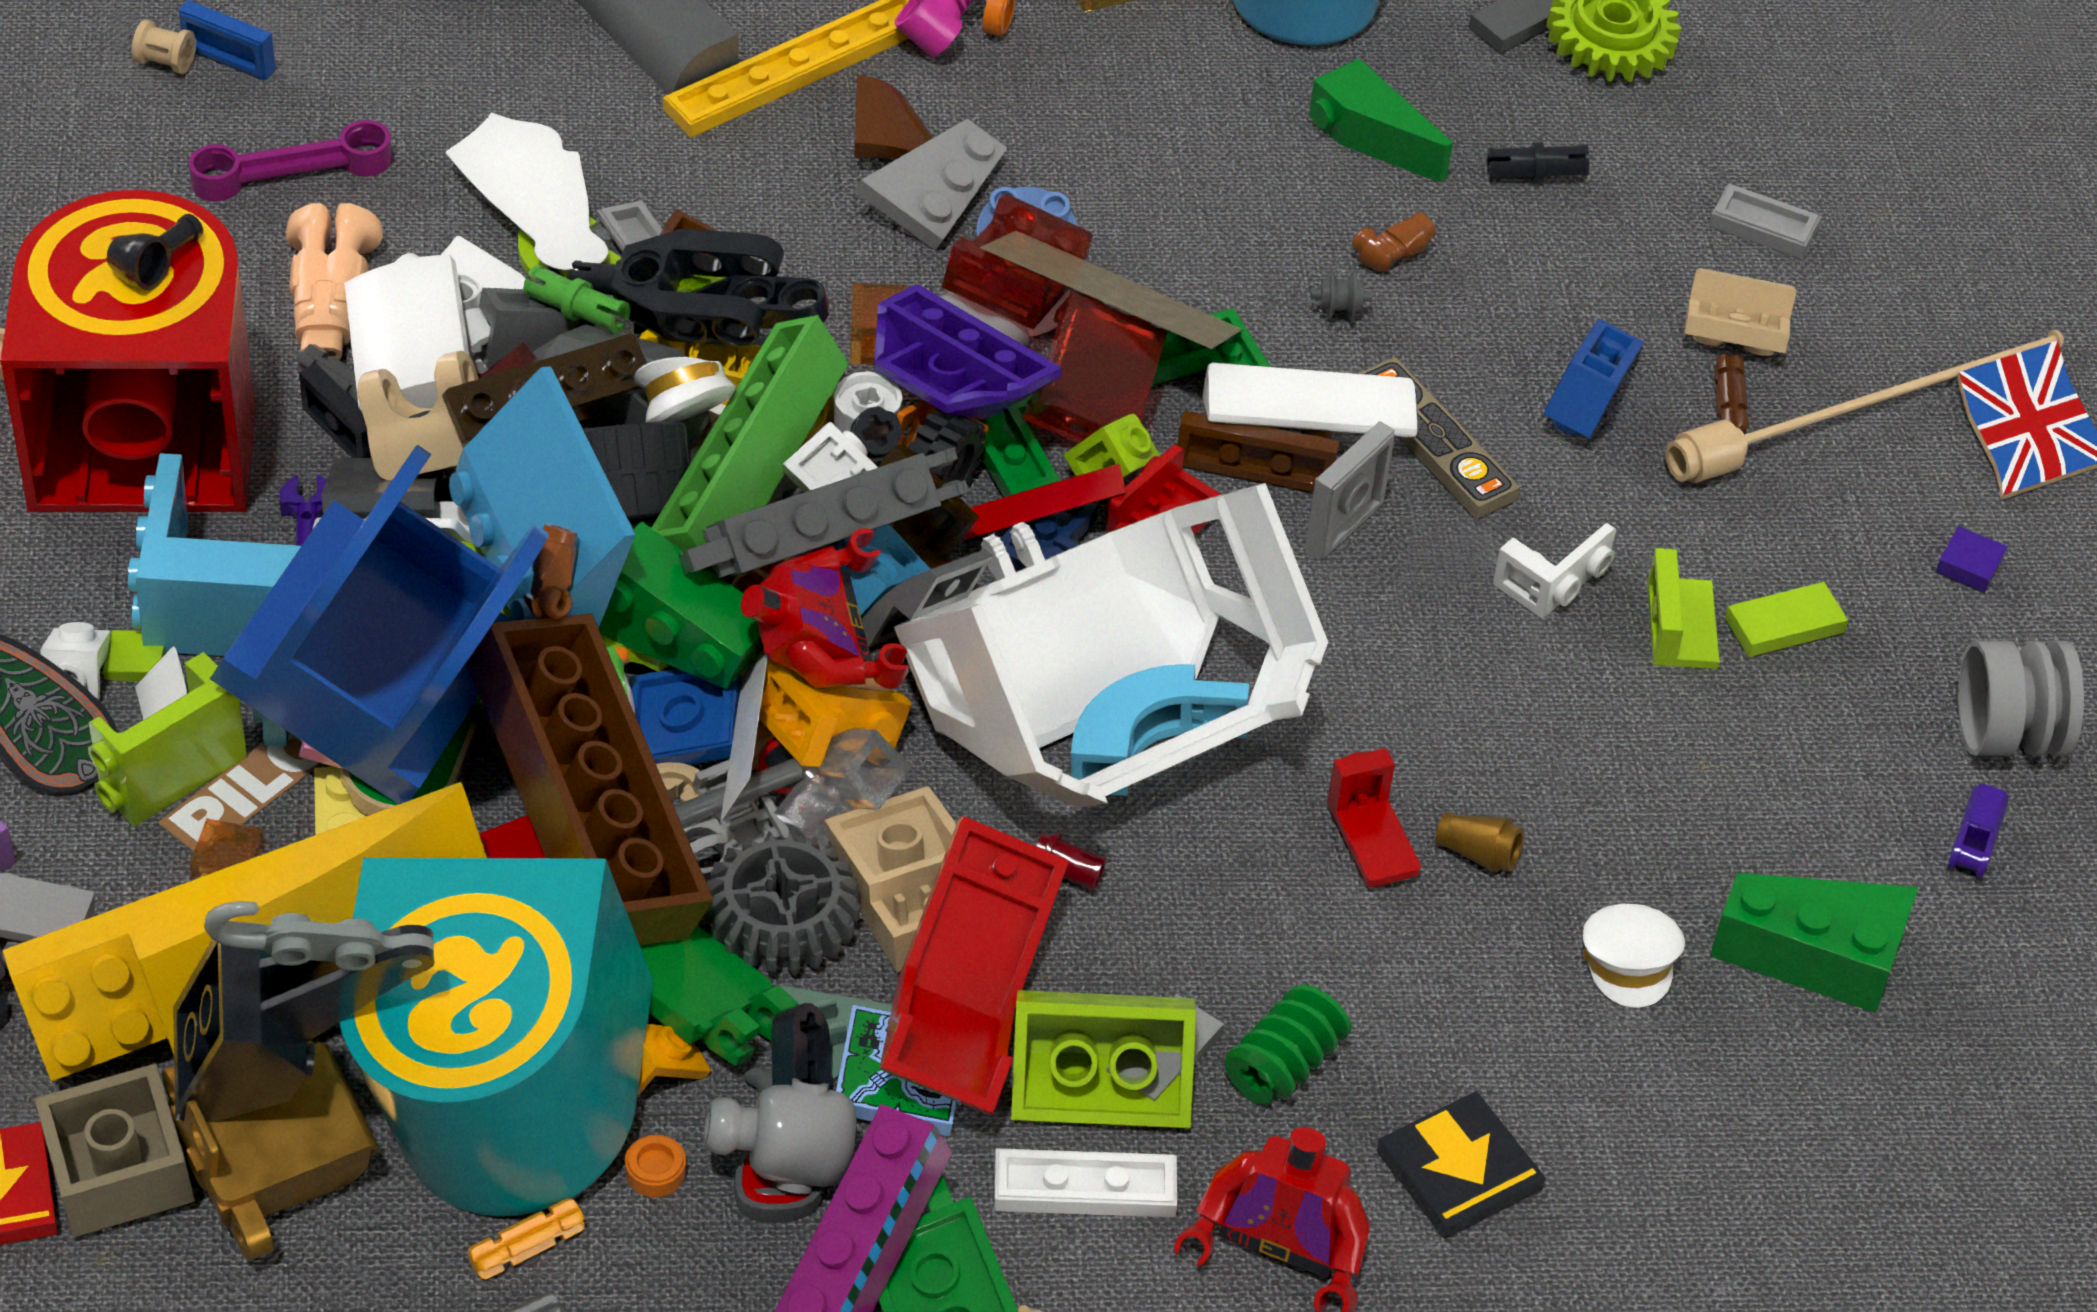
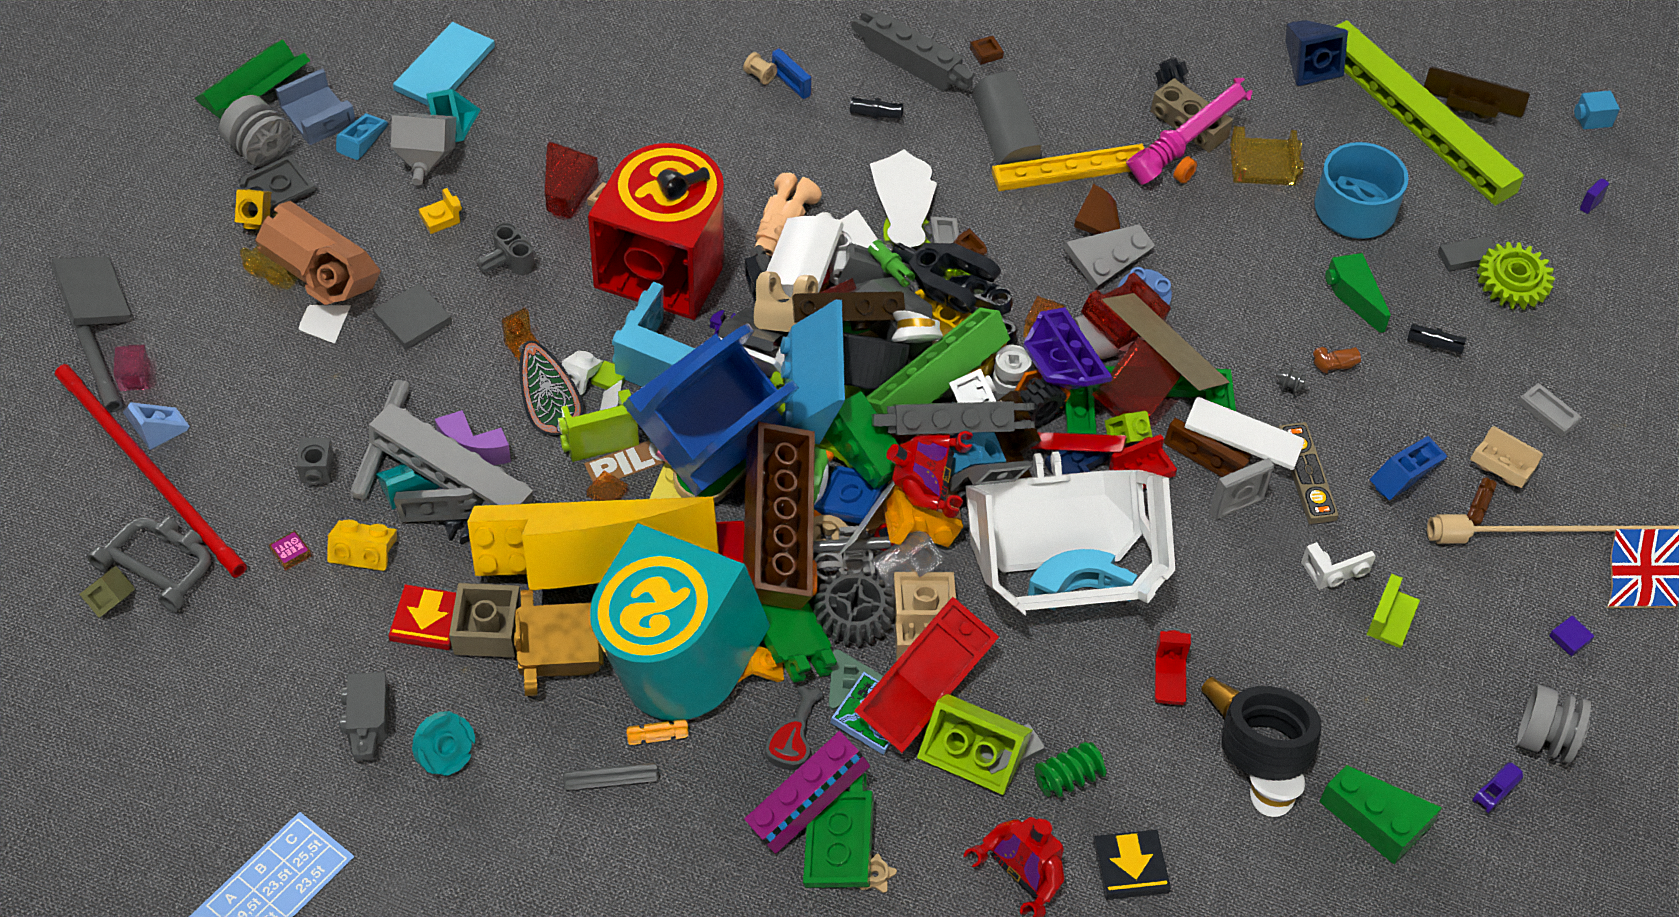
camera: 25 degrees right, 5 degrees up
(268, 993) = (565, 579): black slope -> none
(290, 160) = (795, 145): magenta piece -> none
(410, 57) = (876, 108): none -> black pin
(553, 574) = (801, 405): dark orange arm -> none
(655, 1165) = (734, 718): orange tile -> none
(792, 1134) = (800, 727): light grey piece -> none
(800, 1046) = (824, 691): black beam -> none
(880, 418) = (1011, 373): black bush -> none
(1083, 866) = (1007, 635): dark red pin -> none
(1085, 1182) = (938, 803): white tile -> none
(1592, 902) = (1267, 756): none -> black tyre
(1786, 619) = (1450, 634): lime tile -> none

